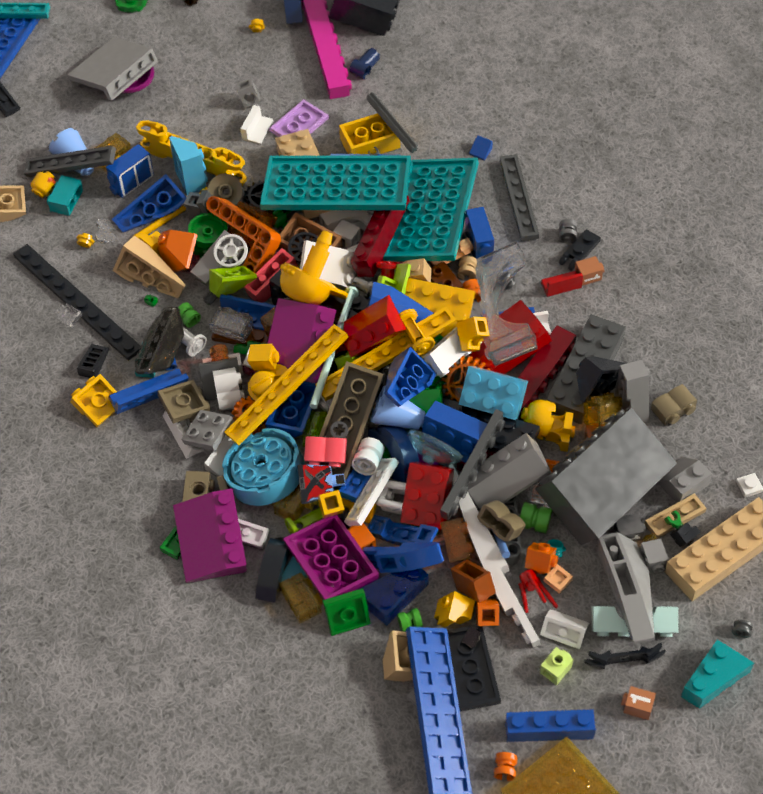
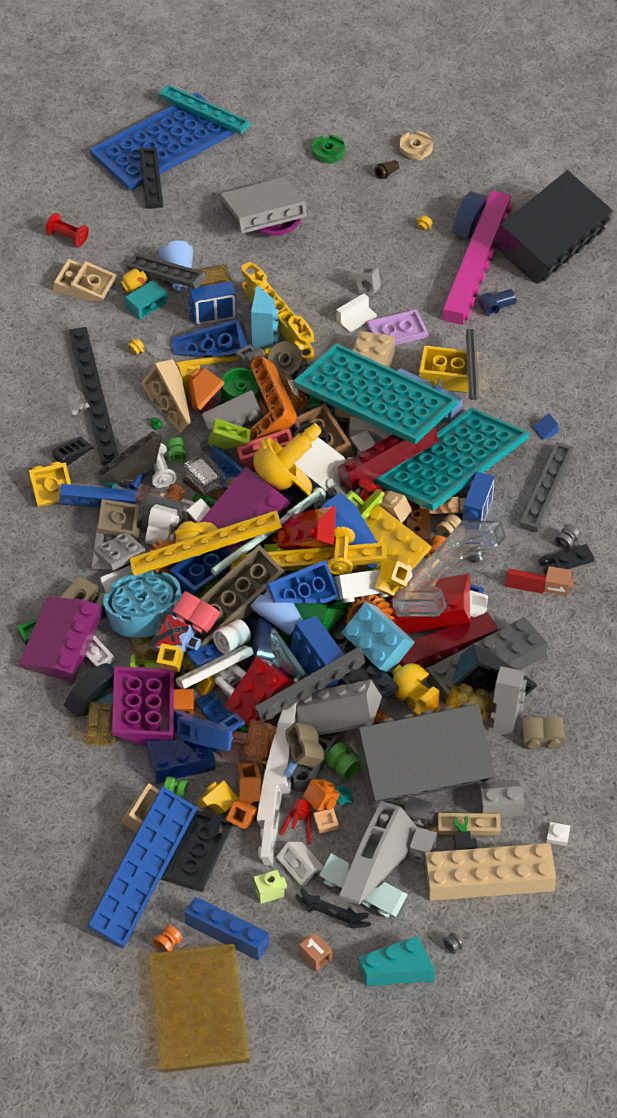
camera: 30 degrees right, 5 degrees down
(230, 251) = (244, 410): white wheel -> none
(263, 357) = (202, 511): yellow brick -> none
(335, 426) = (218, 595): dark grey bush -> none
(346, 612) = (126, 752): green plate -> none

